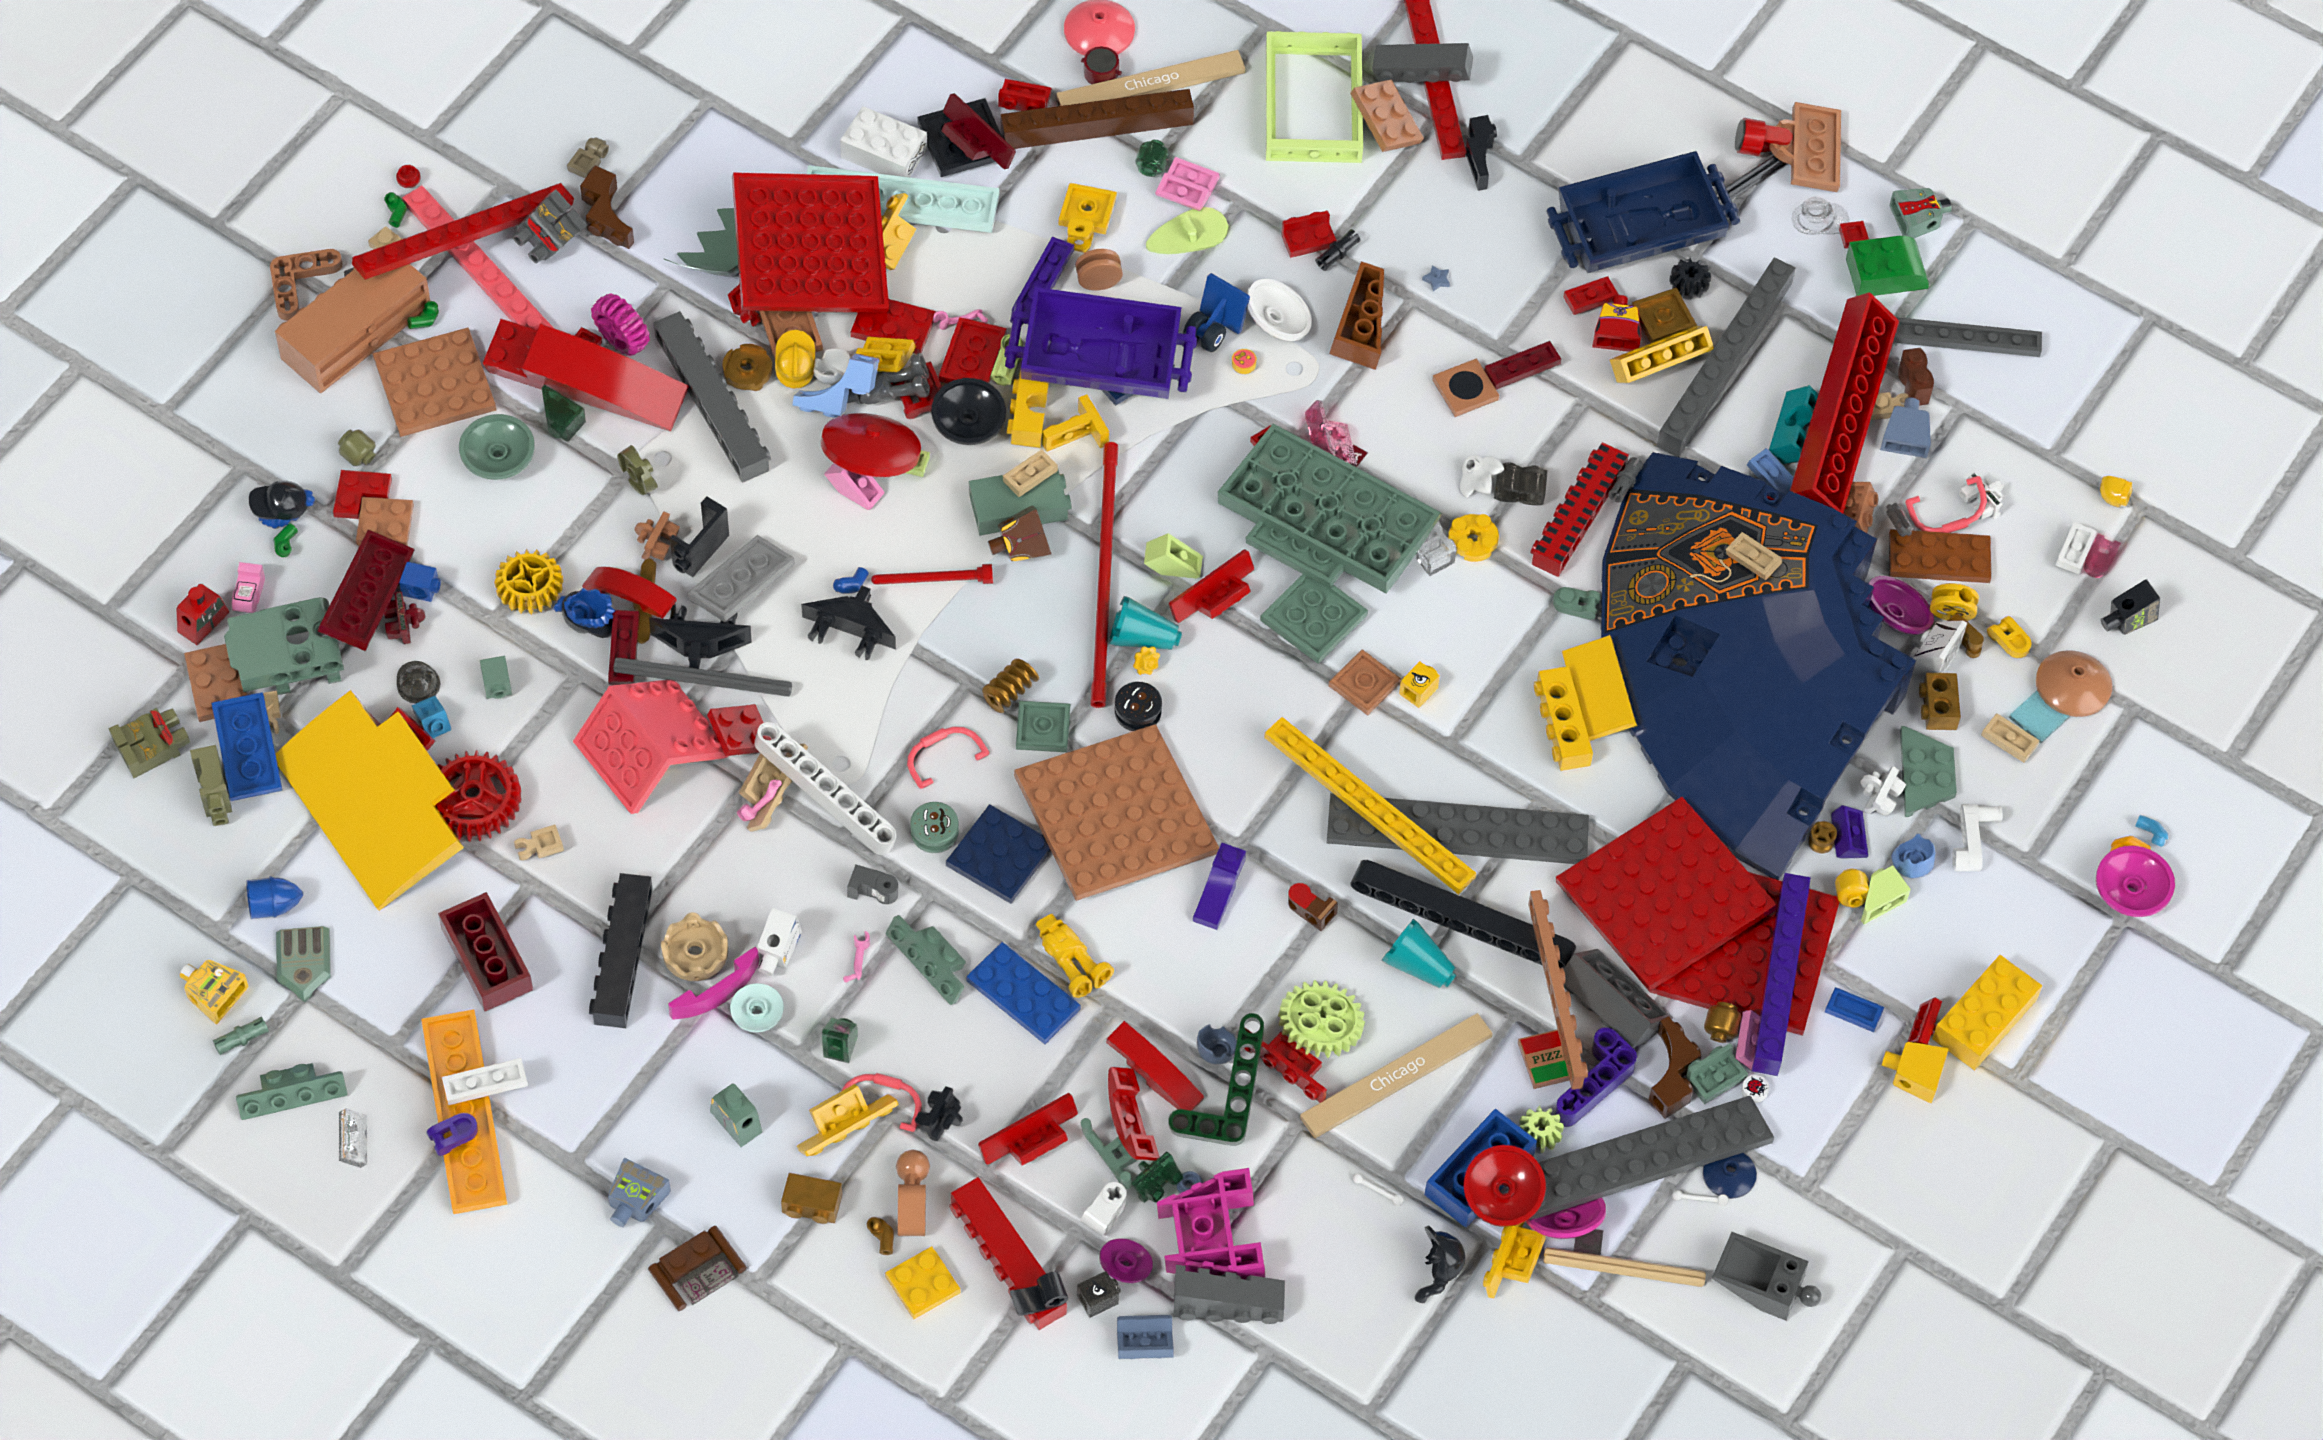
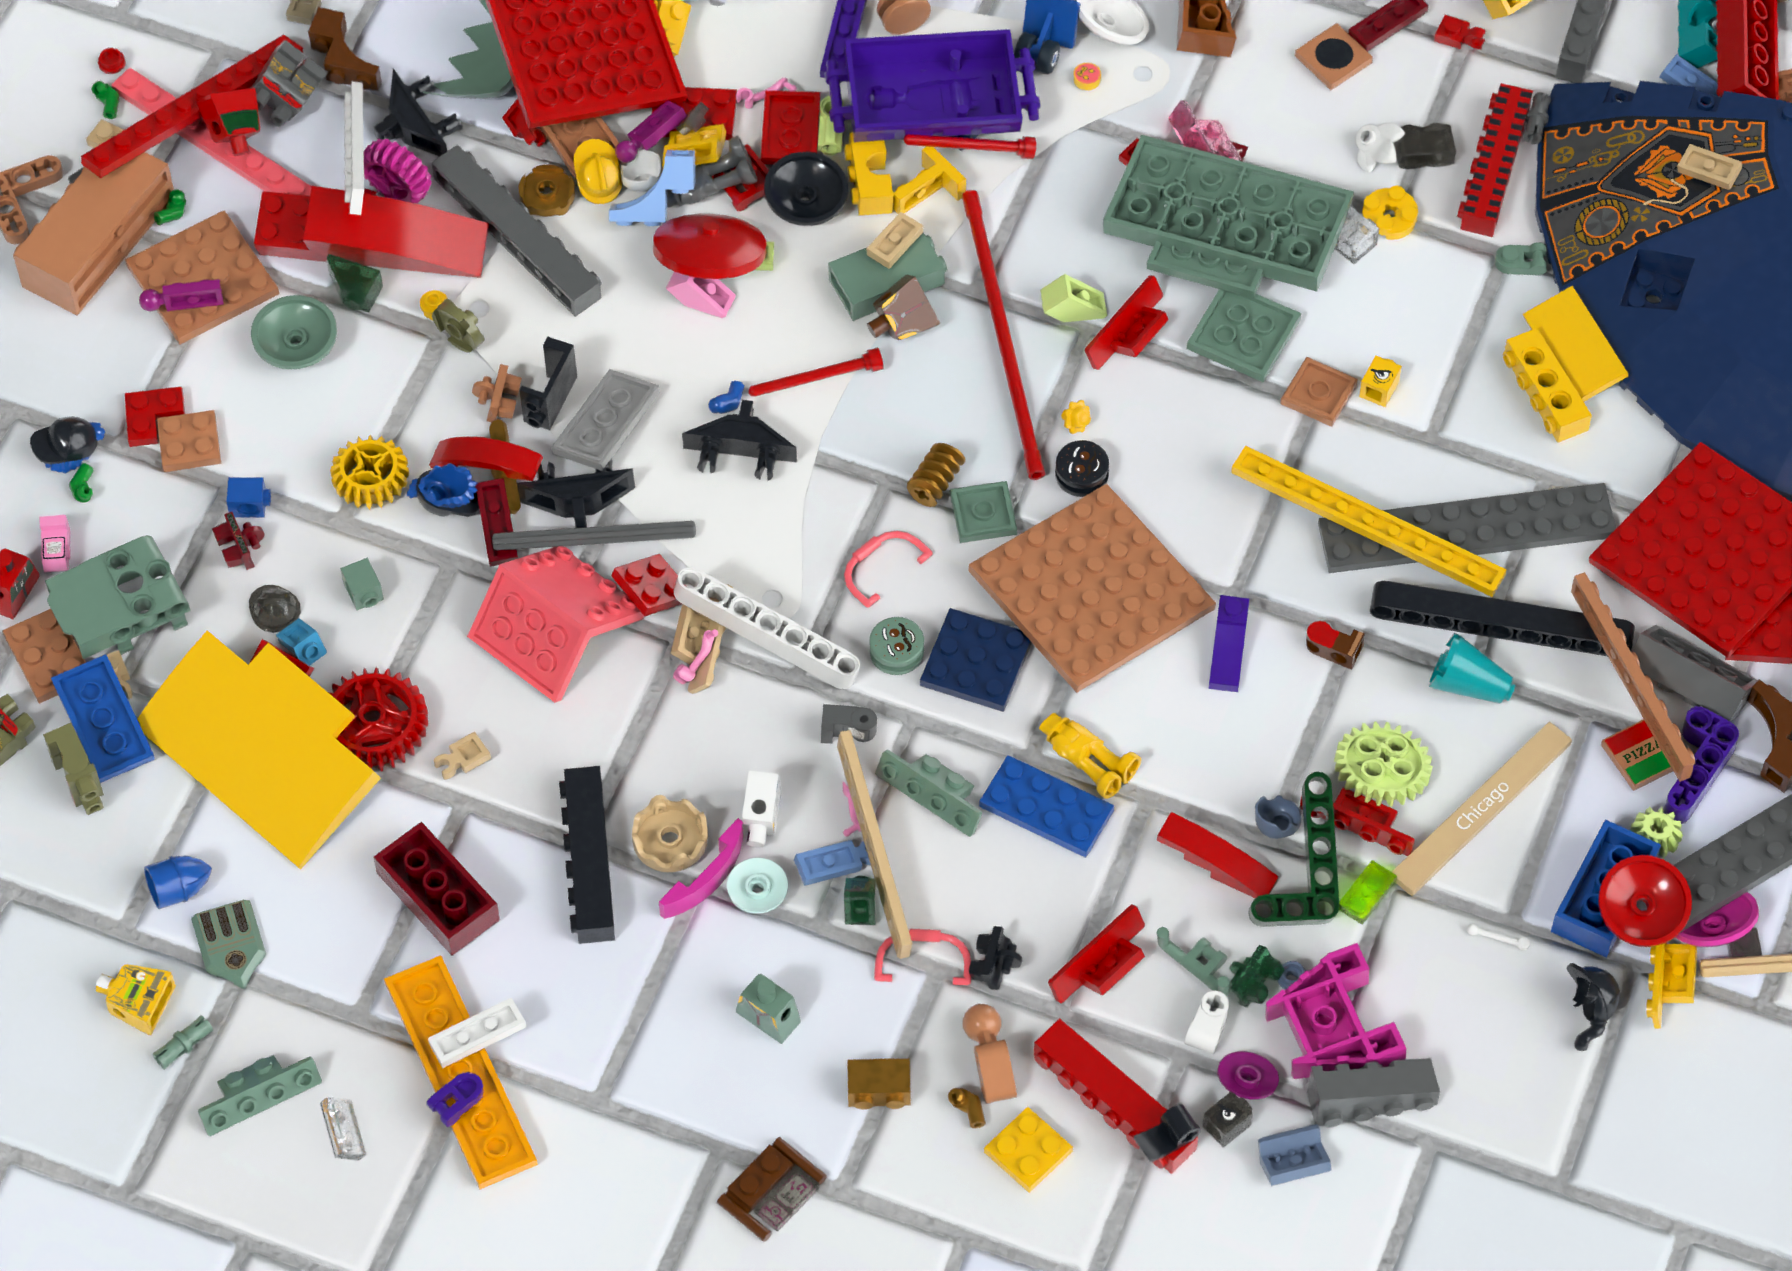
camera: 10 degrees left, 0 degrees up
(357, 447) = (136, 365): olive head -> none
(366, 590) = (193, 518): dark red plate -> none
(411, 396) = (183, 296): none -> magenta plate
(493, 248) = (231, 117): none -> red torso
(587, 296) = (354, 148): none -> white plate
(621, 442) = (430, 301): none -> yellow plate
(636, 1192) = (681, 1119): sand blue torso -> none
(646, 281) = (409, 121): none -> black connector
(828, 1001) = (831, 862): none -> medium blue plate
(843, 1115) = (888, 983): yellow bracket -> none
(848, 333) = (650, 131): none -> magenta plate
(863, 954) = (874, 845): none -> tan tile
(888, 331) = (694, 119): none -> clear smoke plate
(1126, 1114) = (1200, 916): red slope -> none
(1142, 627) = (1060, 381): teal cone -> none
(1168, 413) = (1022, 147): none -> red piece
(1275, 1126) = (1367, 892): none -> clear neon green plate
(1580, 387) = (1457, 32): none -> red plate

